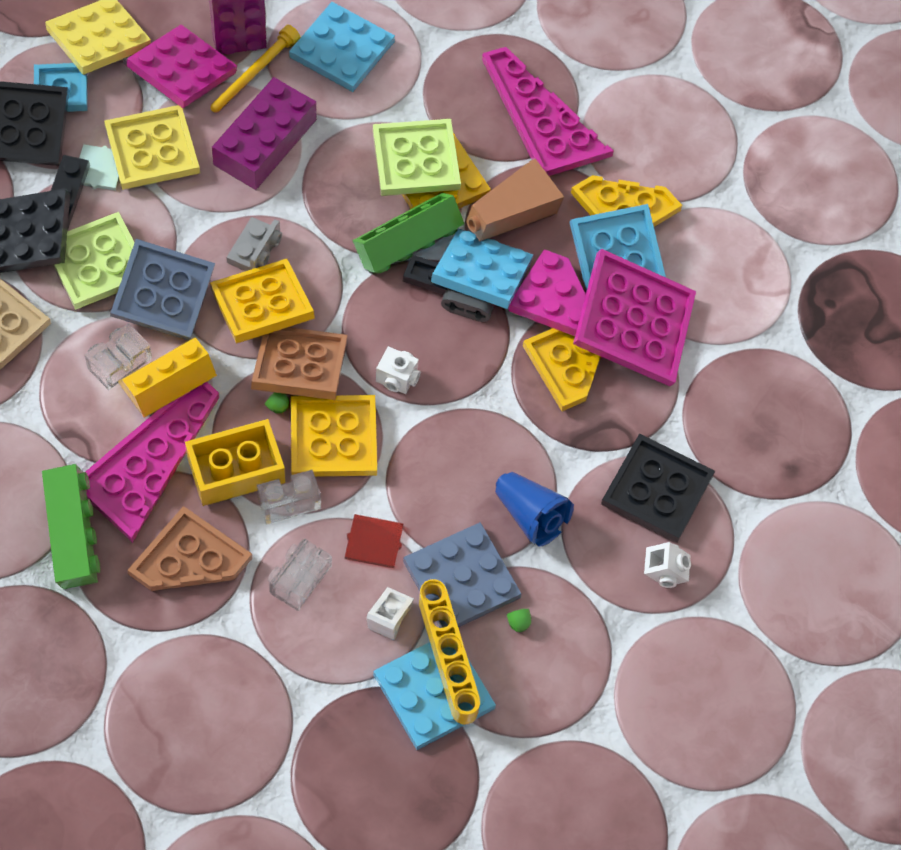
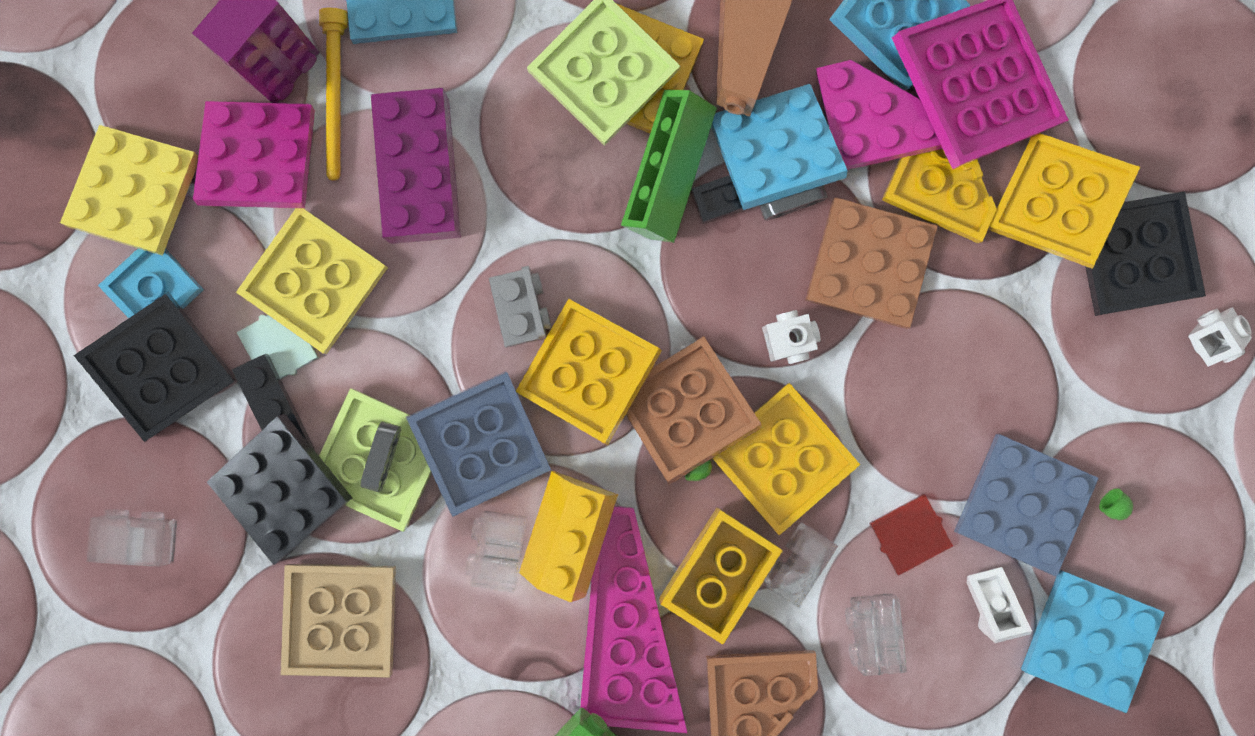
camera: 35 degrees left, 25 degrees up
(101, 252) = (380, 456): none -> dark grey beam
(449, 664) = (1111, 612): yellow beam -> none
(485, 374) = (871, 263): none -> nougat plate
(534, 507) = (1043, 380): blue cone -> none
(632, 417) = (1064, 199): none -> yellow plate

